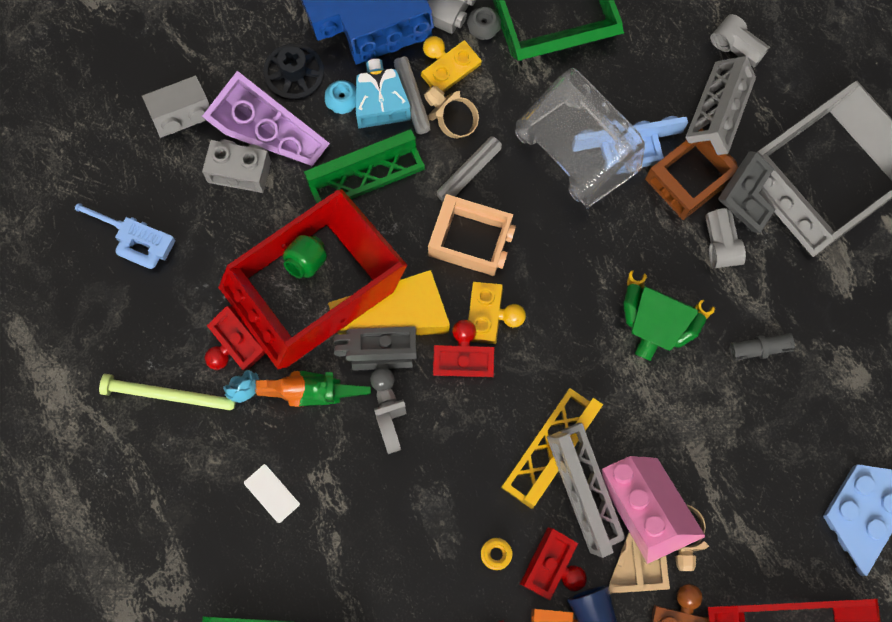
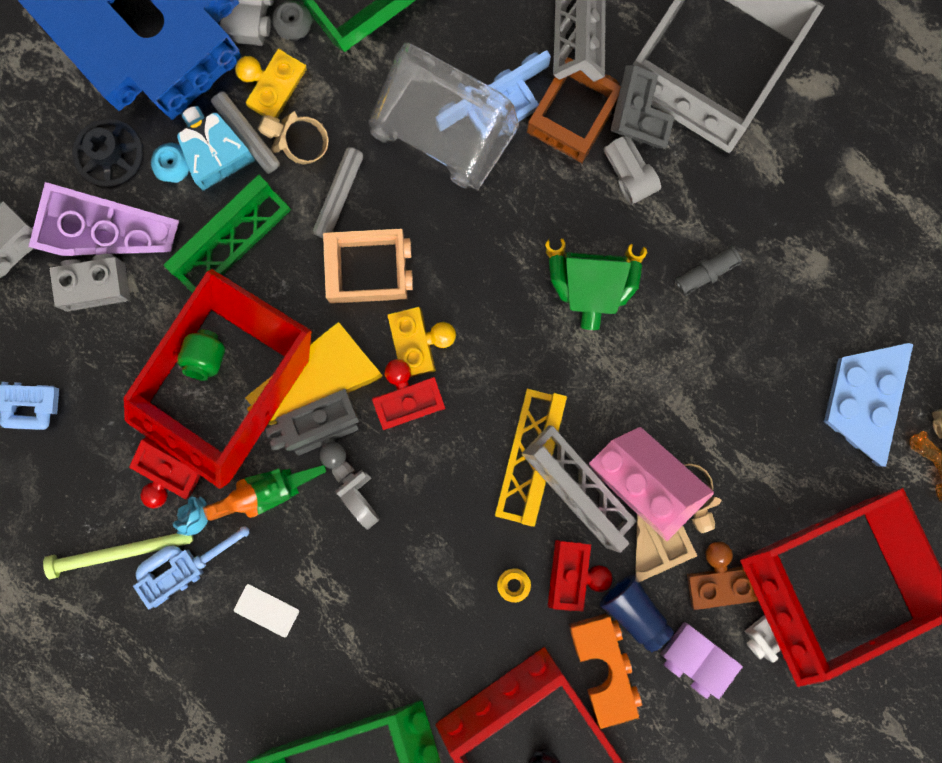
camera: 15 degrees left, 10 degrees up
(214, 431) = (184, 570): none -> light blue piece

